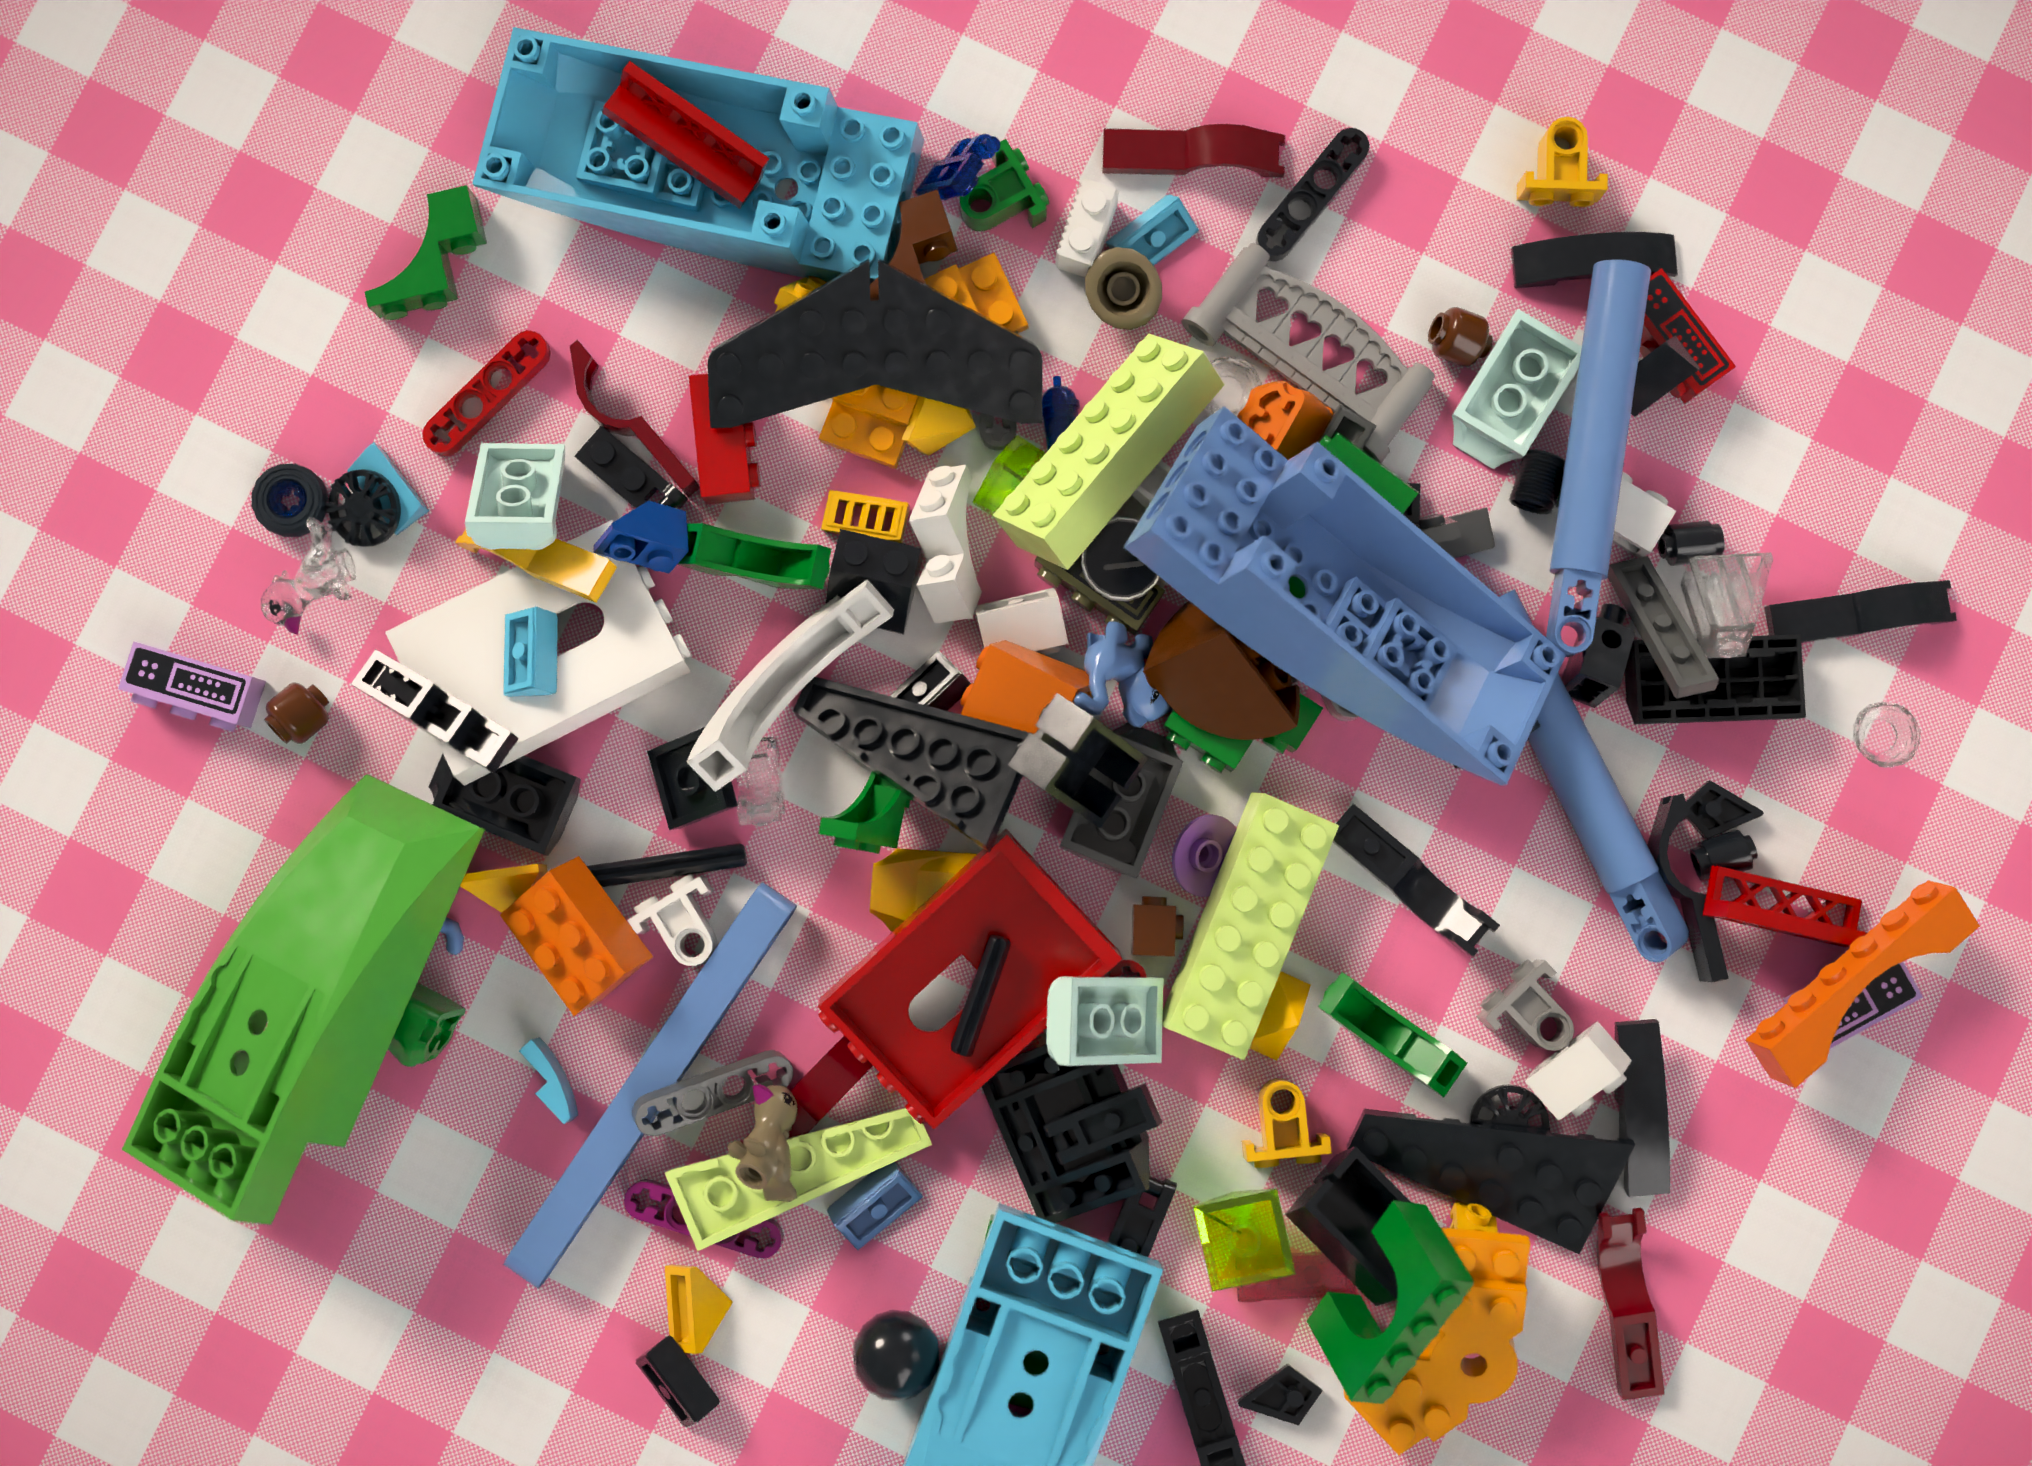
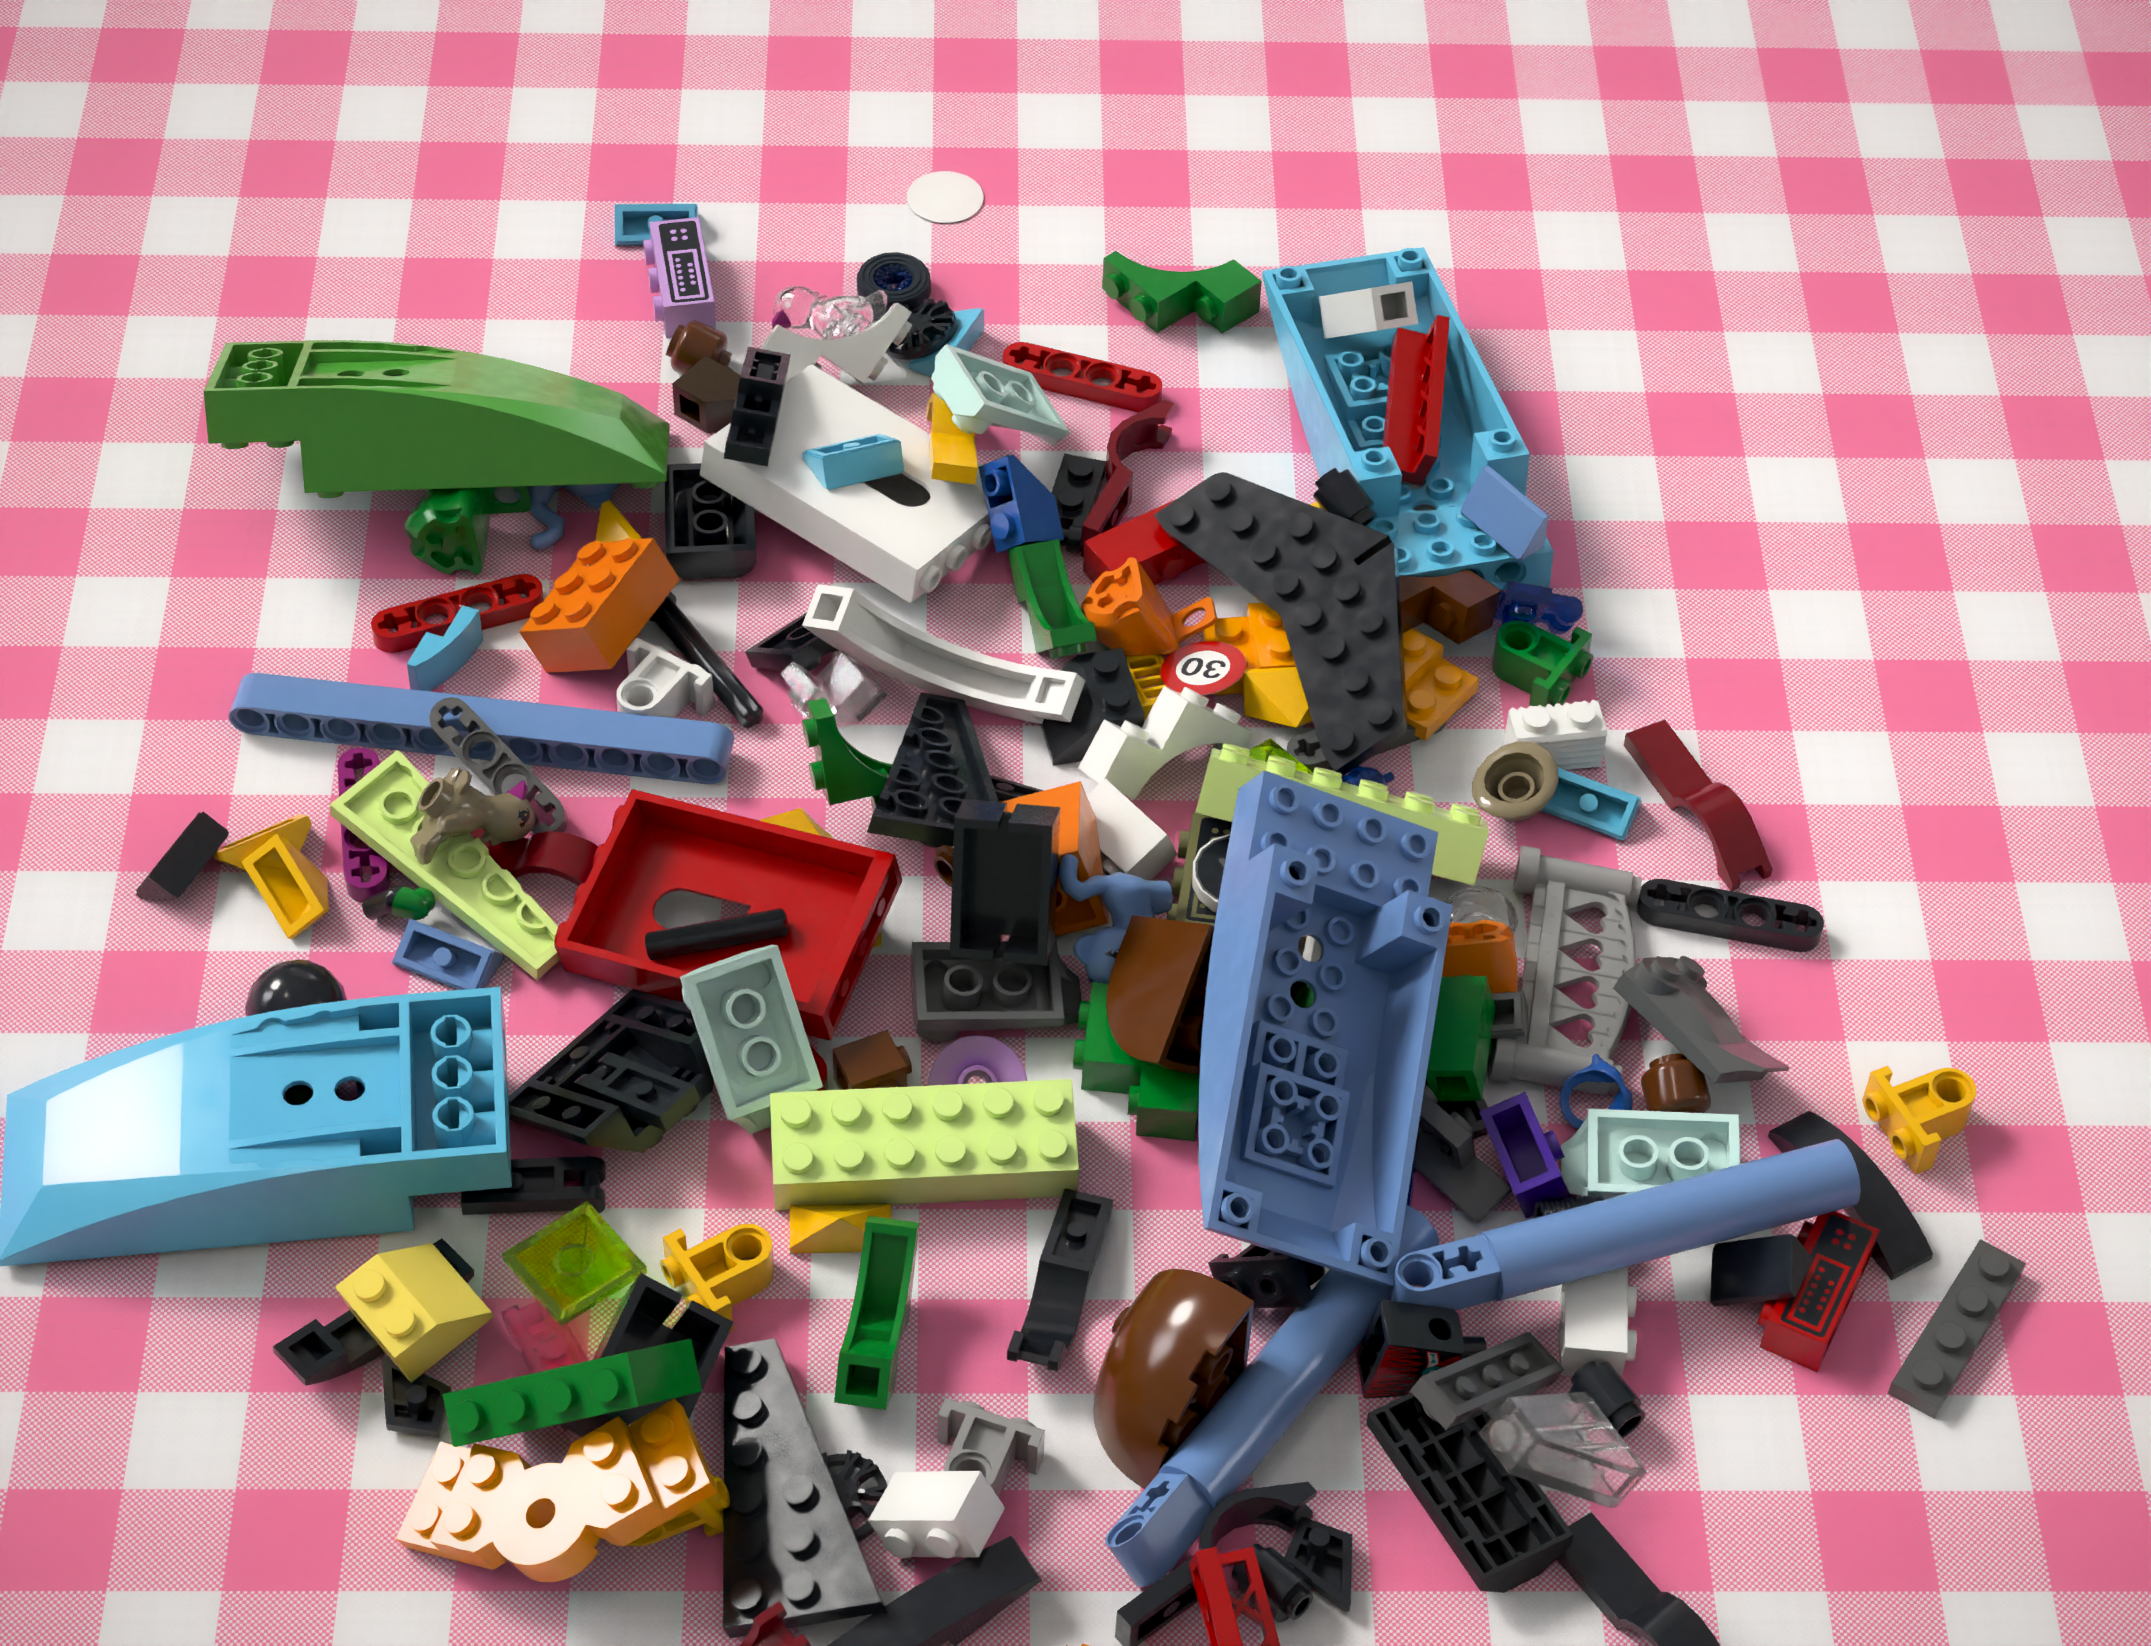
camera: 60 degrees right, 35 degrees down
(100, 676) = (633, 220): none -> medium azure slope
(192, 398) = (945, 197): none -> white sticker
(357, 726) = (706, 395): none -> dark brown slope
(374, 584) = (856, 355): none -> white arch
(497, 1047) = (449, 604): none -> red beam
(566, 116) = (1368, 310): none -> white slope
(749, 1304) = (288, 884): none -> yellow slope
(798, 270) = (1344, 497): none -> black brick
(798, 493) = (1135, 616): none -> orange piece
(811, 1227) = (399, 902): none -> arm
(875, 144) = (1505, 514): none -> medium blue slope
(882, 470) = (1203, 667): none -> sticker
(1225, 1374) = (413, 1306): none -> light yellow slope
(1421, 289) = (1676, 1003): none -> dark grey slope
(1452, 392) = (1597, 1072): none -> blue piece
(1472, 482) = (1525, 1152): none -> dark purple brick
(1540, 851) = (1168, 1367): none -> reddish brown brick
(1740, 257) = (1956, 1329): none -> dark grey plate

